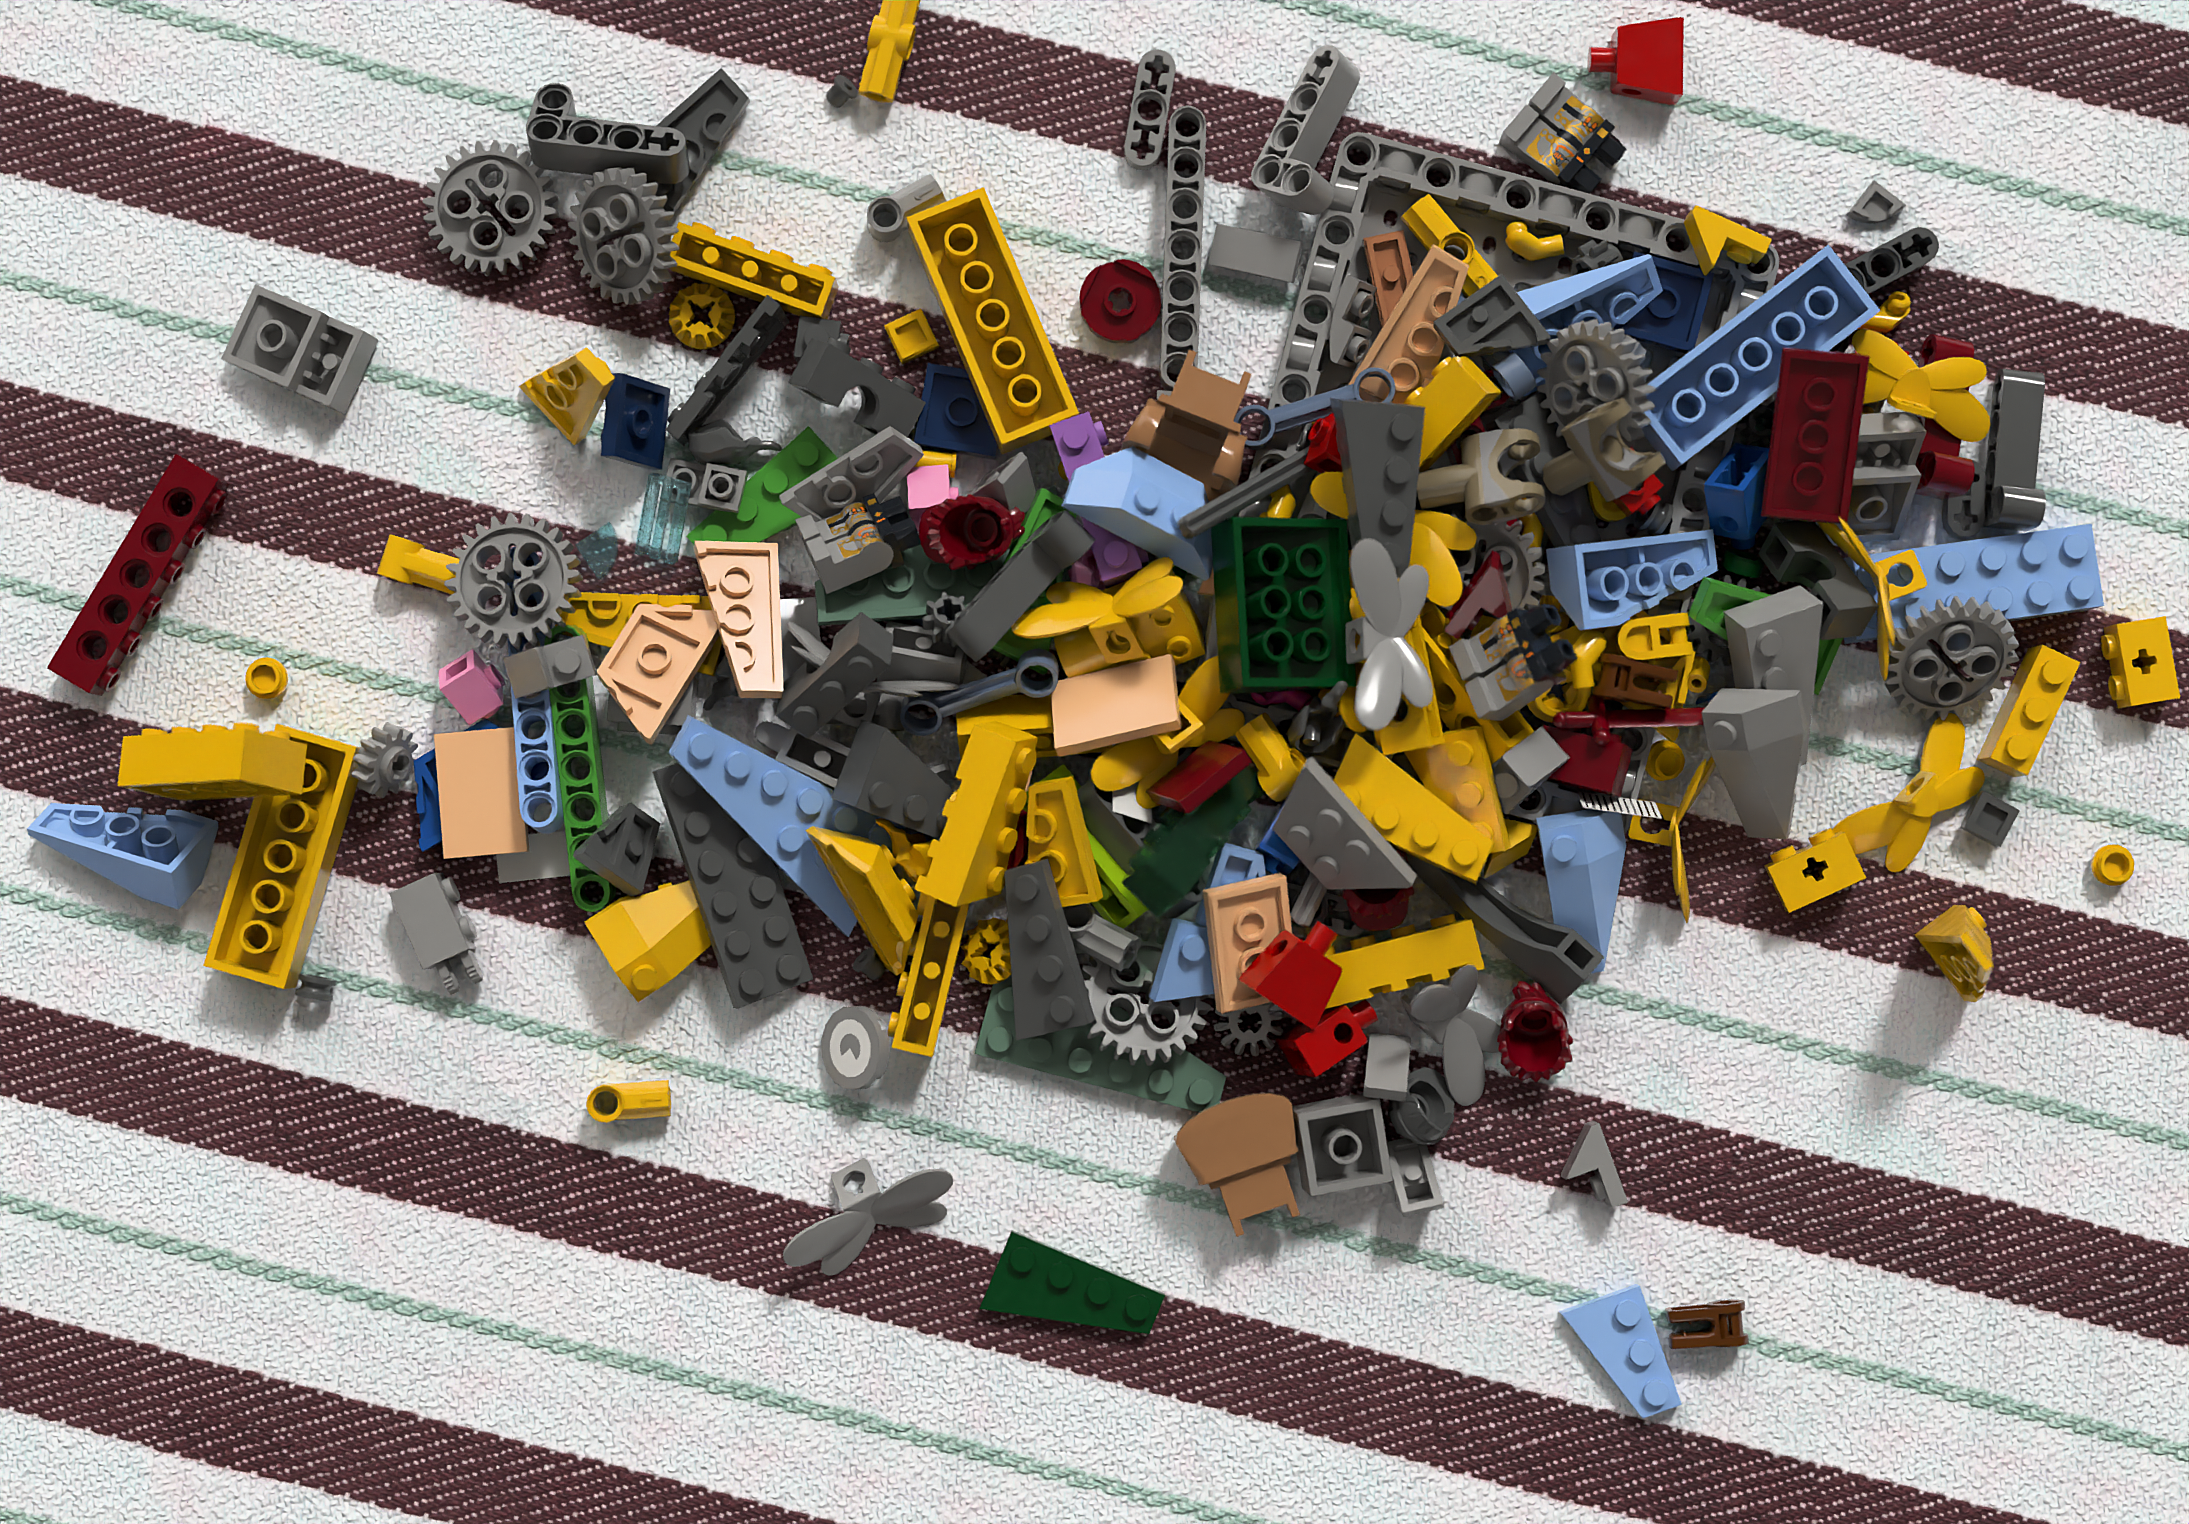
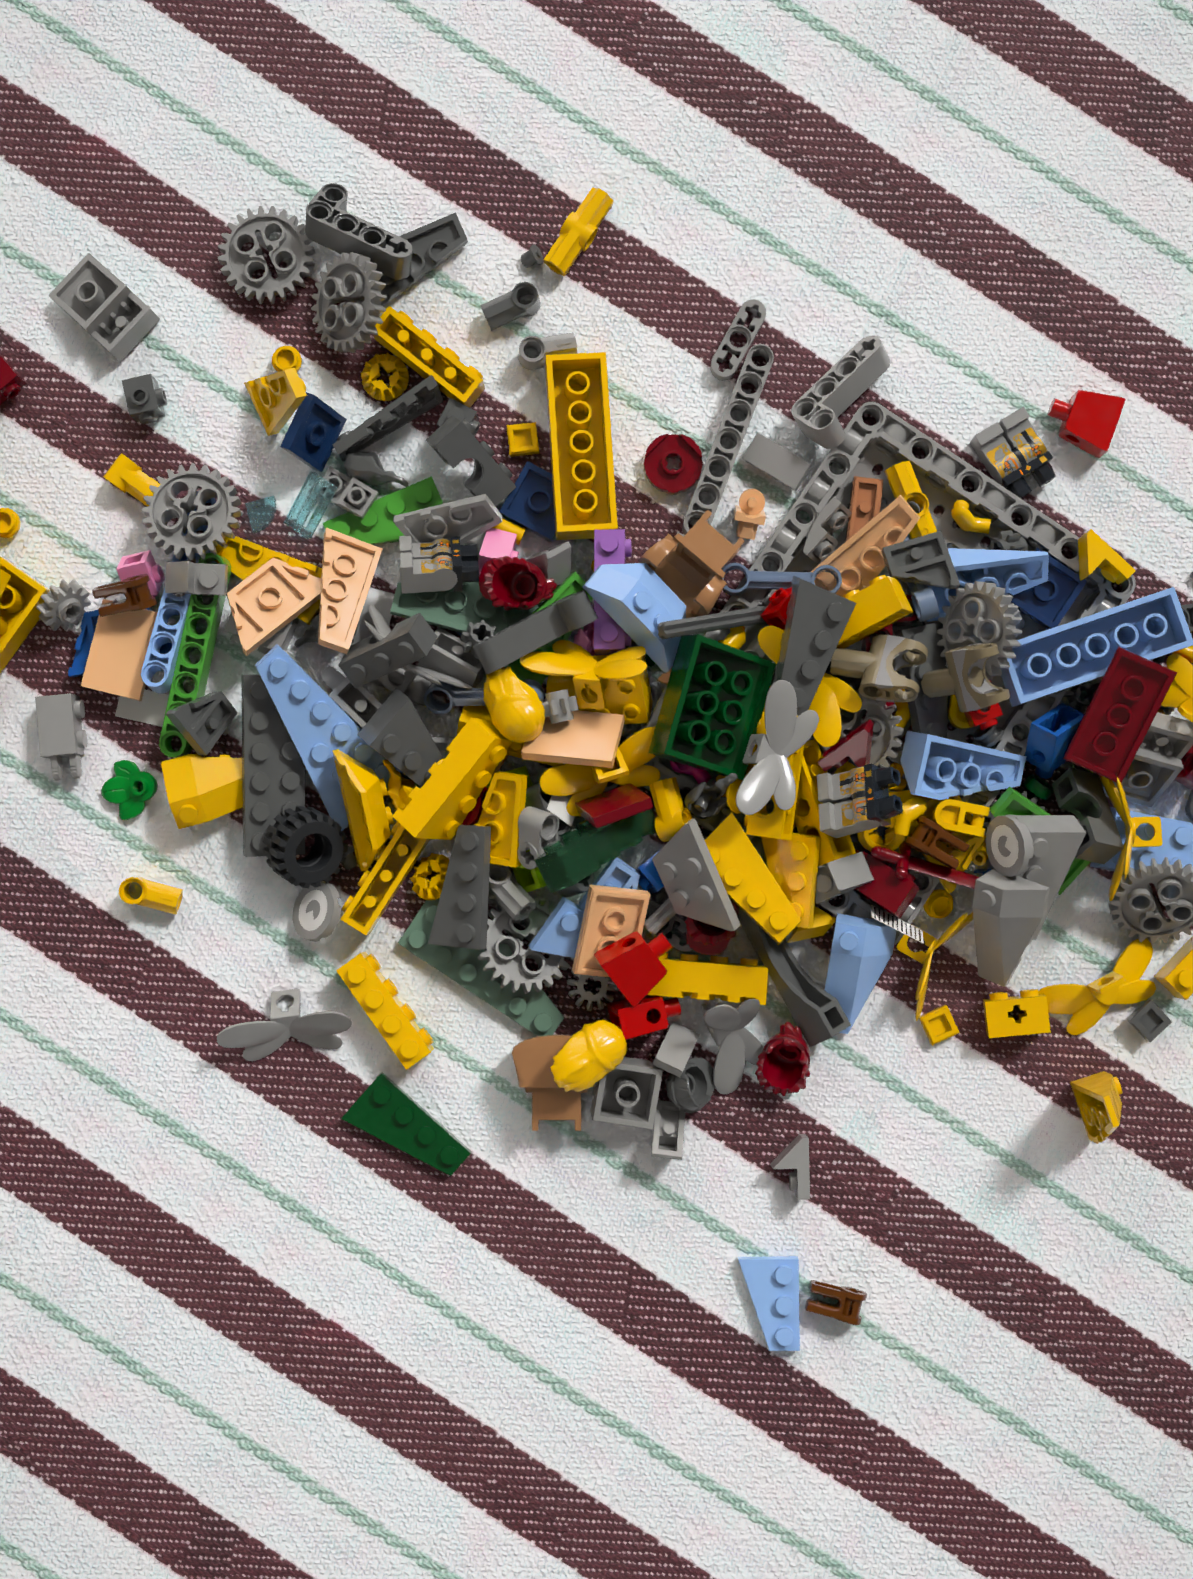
camera: 20 degrees right, 0 degrees up
(395, 452) = (144, 398): none -> dark grey brick
(473, 707) = (136, 593): none -> reddish brown piece
(546, 974) = (125, 789): none -> green plate
(564, 337) = (286, 358): none -> yellow plate
(832, 170) = (507, 306): none -> dark grey piece
(839, 975) = (323, 857): none -> black tyre
(989, 1146) = (385, 1009): none -> yellow brick
(1024, 692) = (513, 706): none -> yellow hair
(1083, 671) = (560, 706): none -> light grey gear
(1109, 846) = (536, 831): none -> light grey piece
(1243, 334) = (749, 513): none -> light nougat hips
(1278, 1112) = (589, 1056): none -> yellow hair
(1718, 918) = (938, 1024): none -> yellow tile
(1729, 653) = (1009, 845): none -> light grey tile

